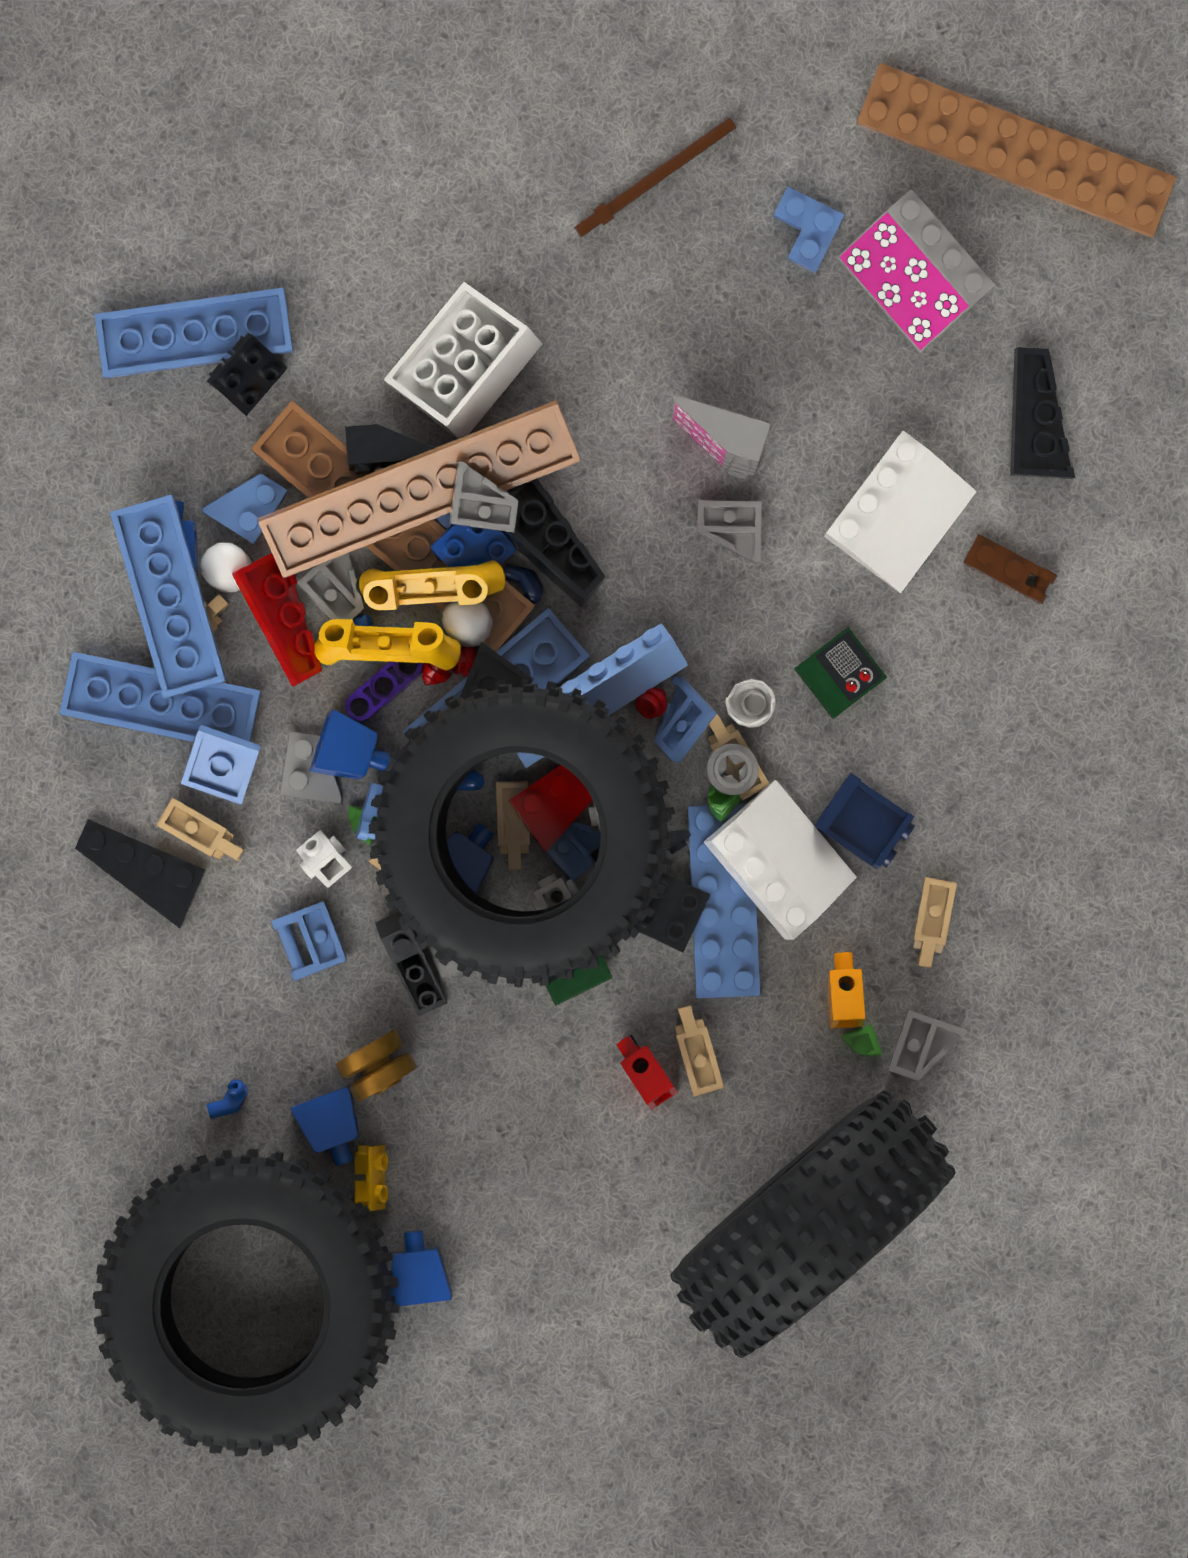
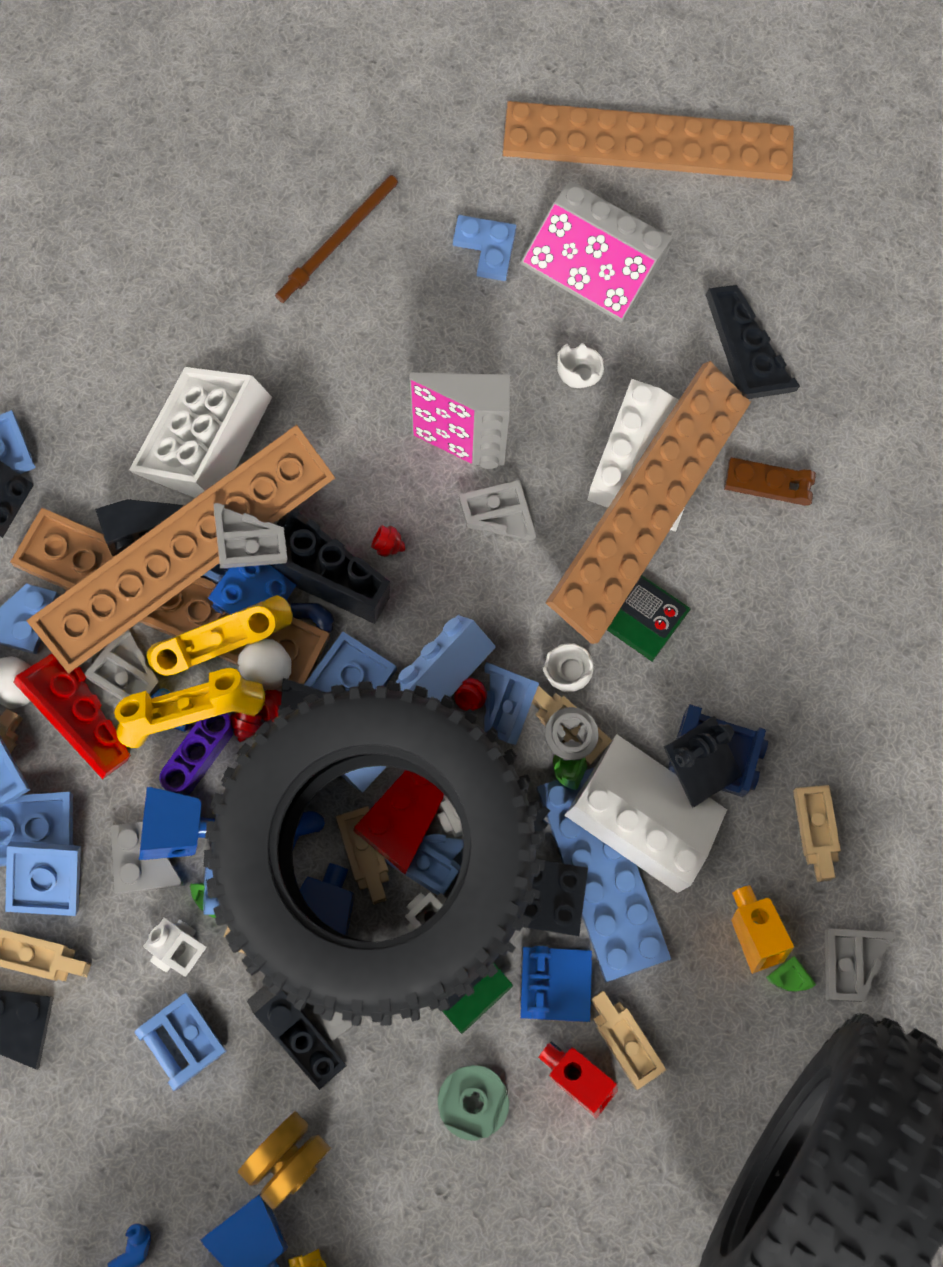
camera: 20 degrees left, 15 degrees down
(552, 1083) = (482, 1121): none -> sand green plate
(615, 527) = (387, 541): none -> red plate
(651, 987) = (556, 984): none -> blue hinge
(846, 829) = (704, 760): none -> black hinge
(859, 395) = (579, 366): none -> white hair
(882, 561) = (648, 504): none -> medium nougat plate

